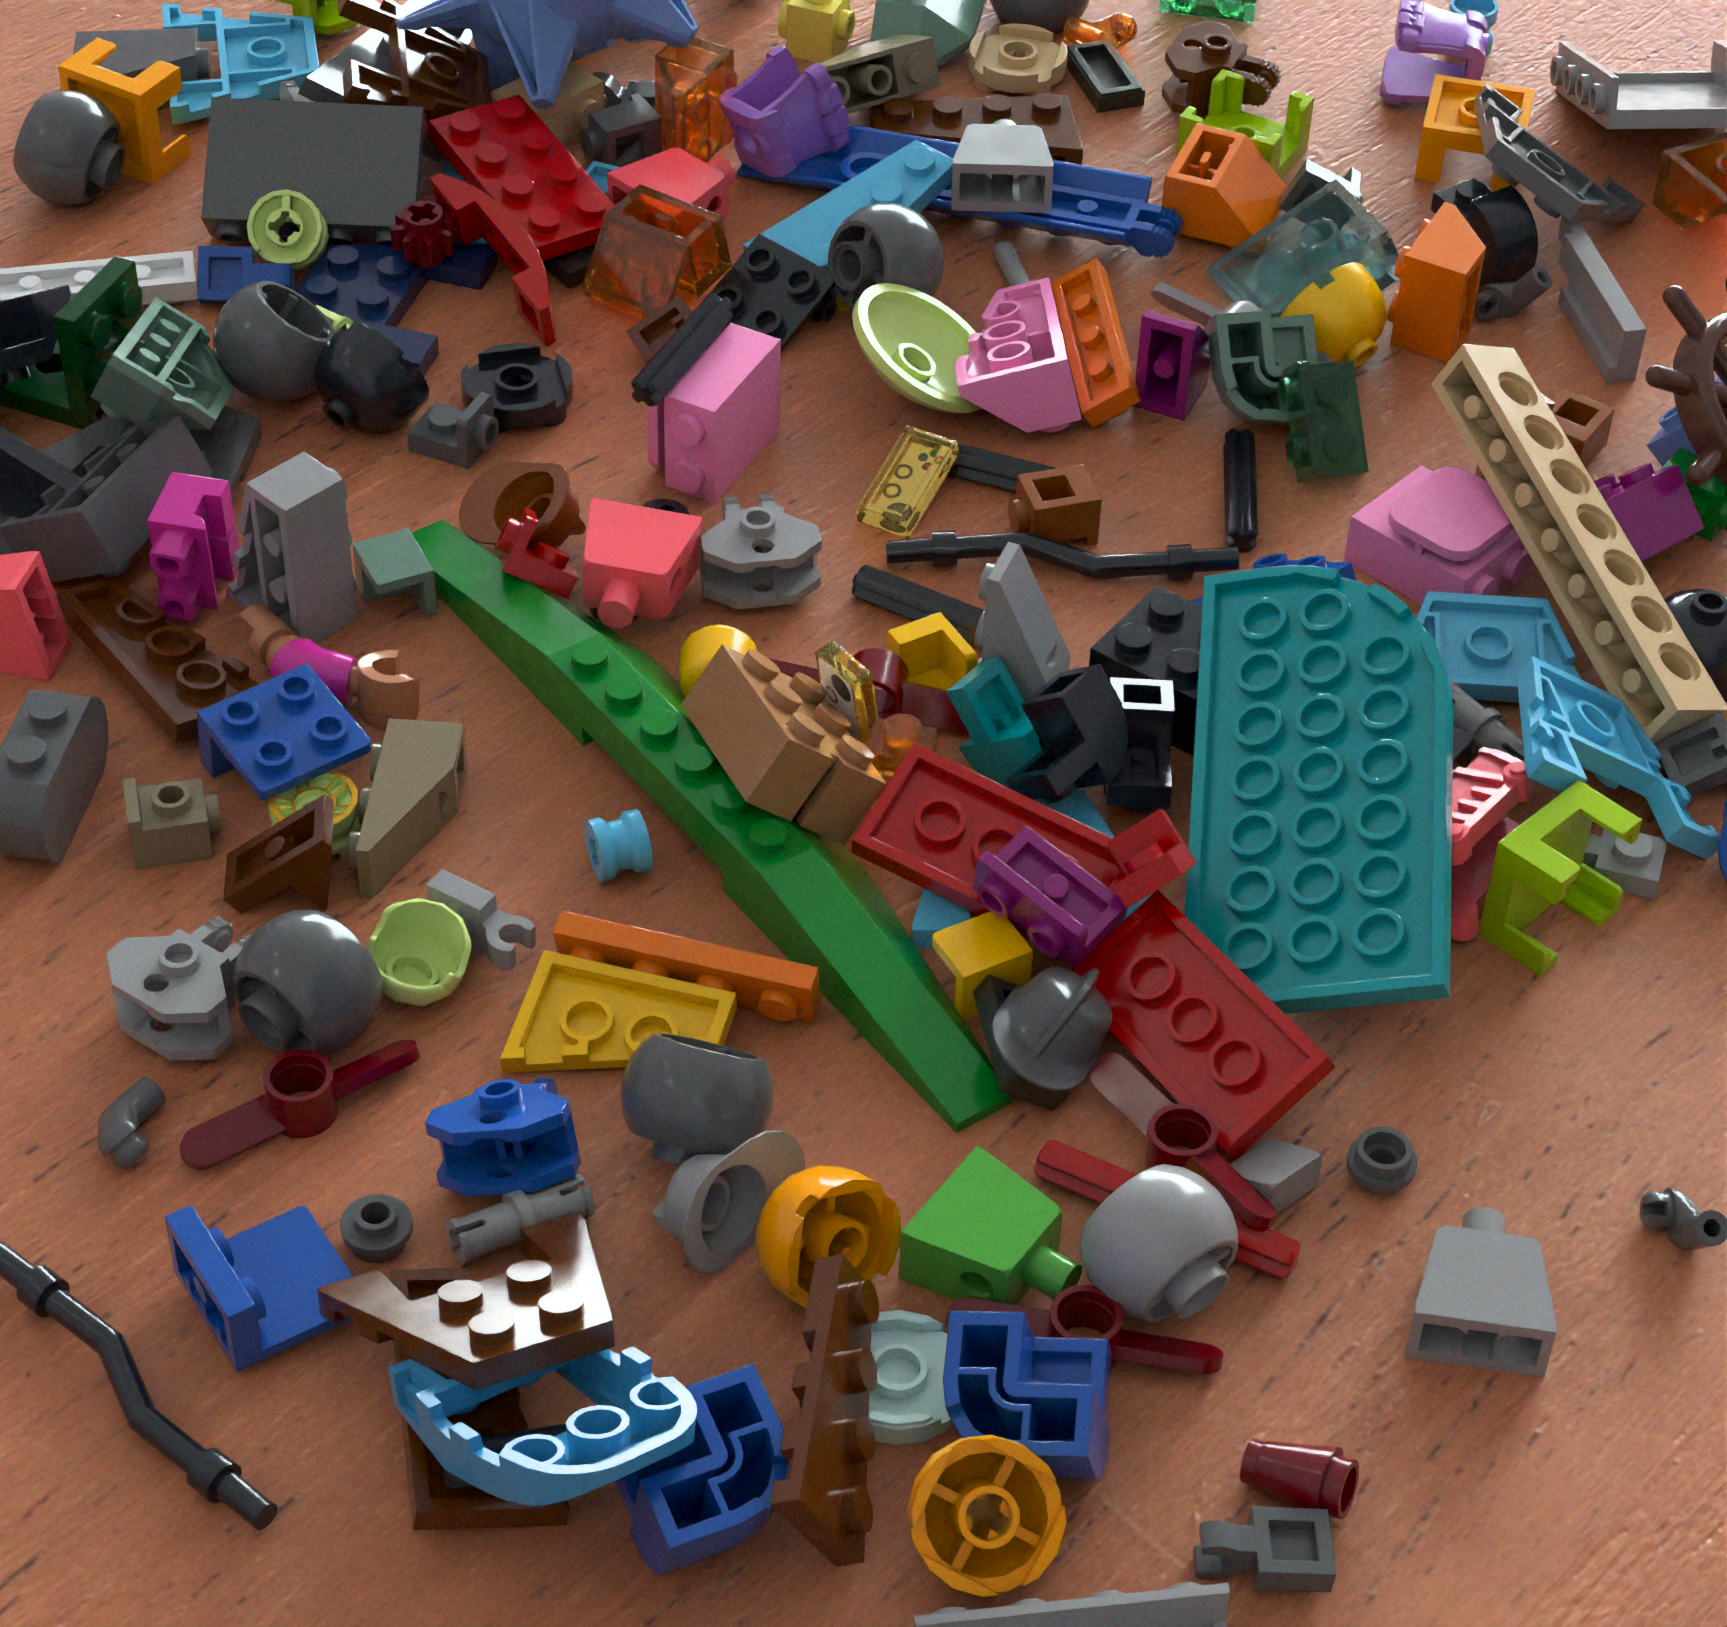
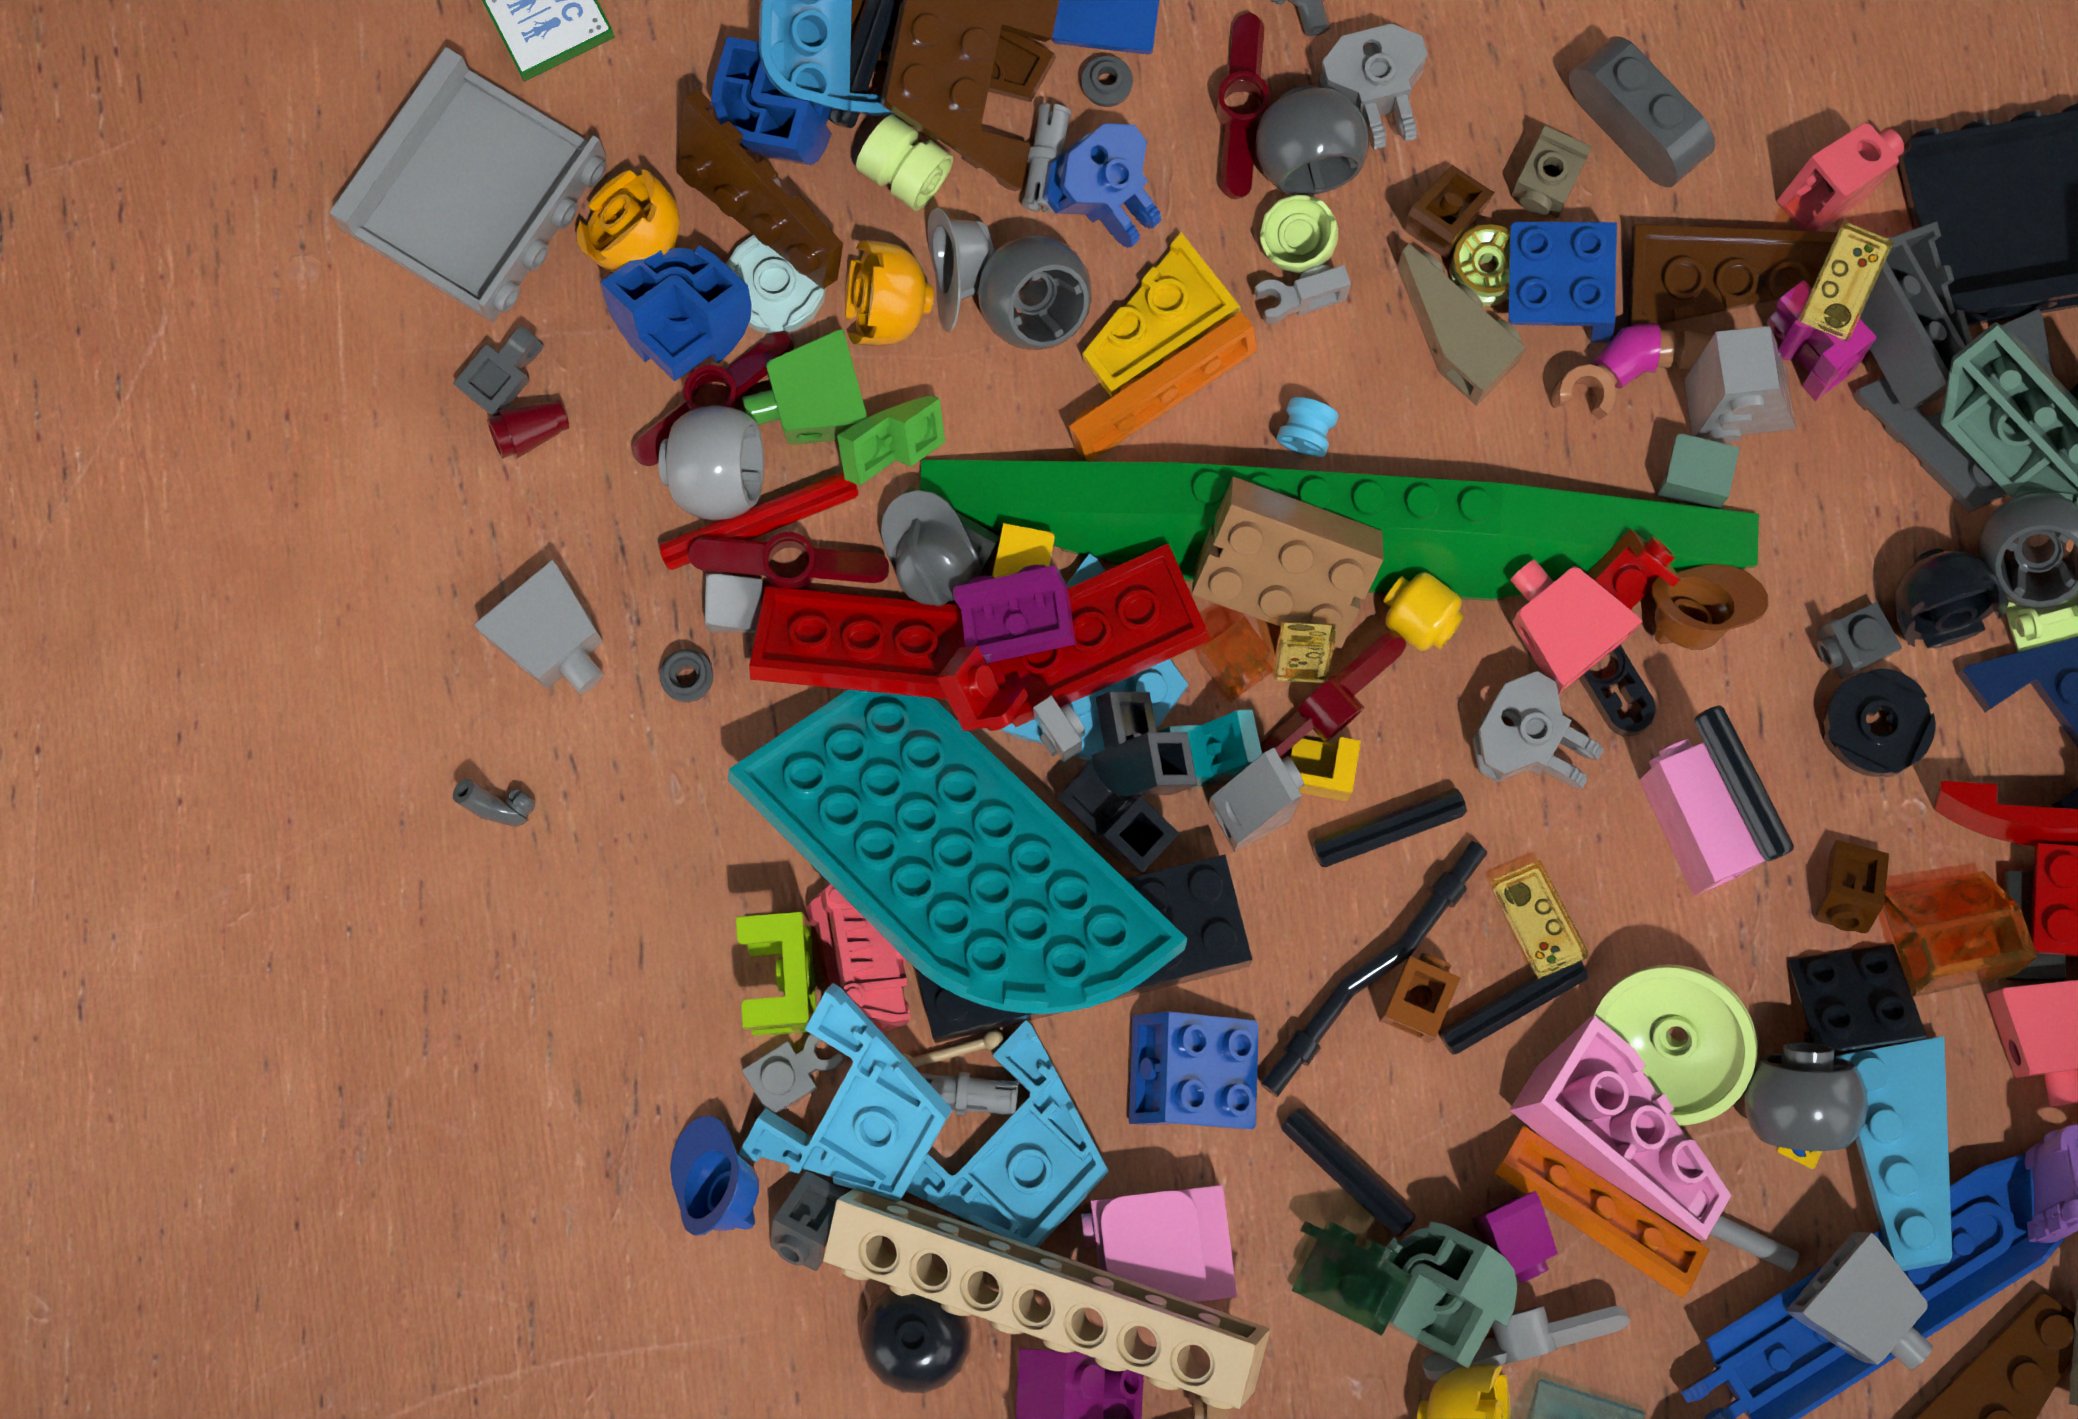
camera: 135 degrees right, 35 degrees up
(135, 503) = (1845, 281): none -> clear yellow tile
(655, 1312) = (898, 158): none -> yellowish green wheel
(961, 1128) = (895, 434): none -> bright green slope
(1116, 792) = (1060, 728): none -> light grey plate

